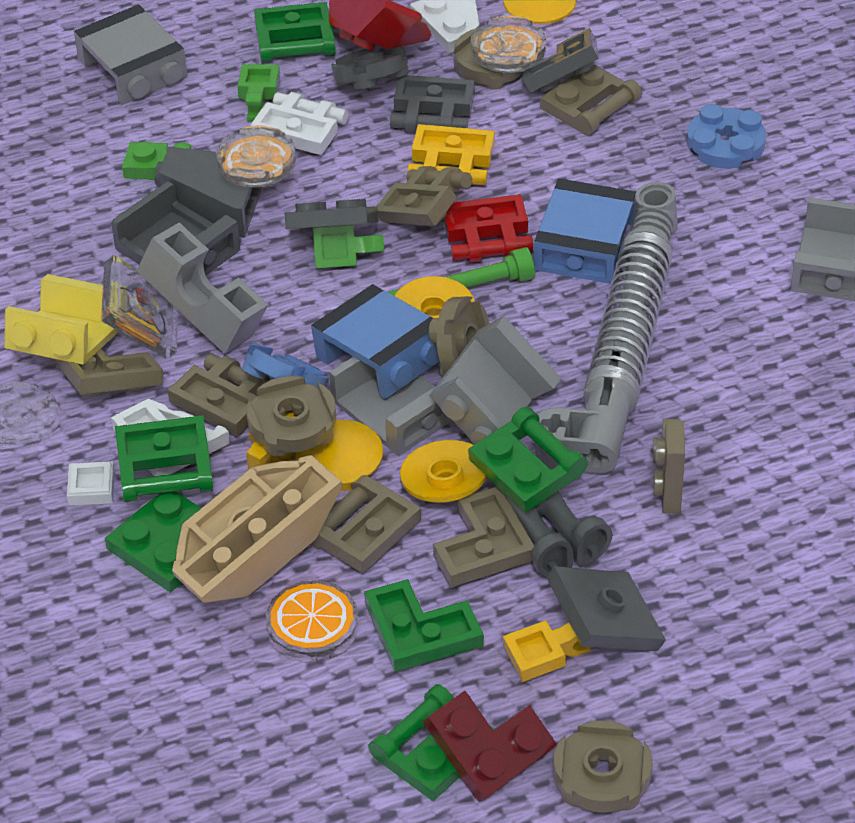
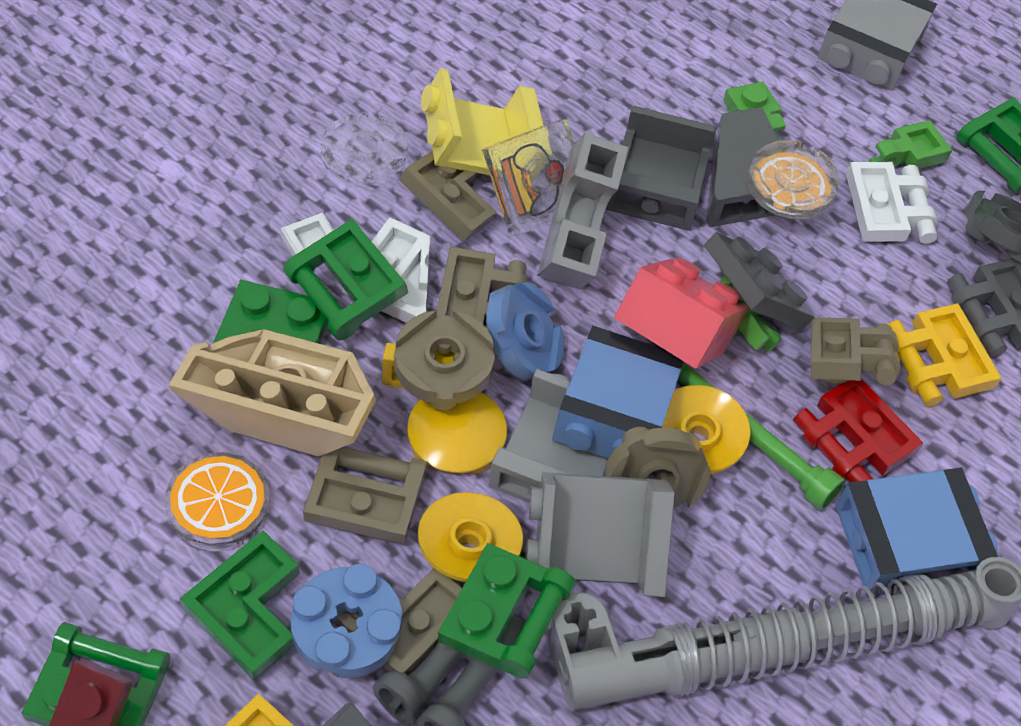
camera: 55 degrees right, 10 degrees up
(335, 267) = (682, 311): none -> coral brick
(475, 538) = (334, 649): none -> medium blue plate

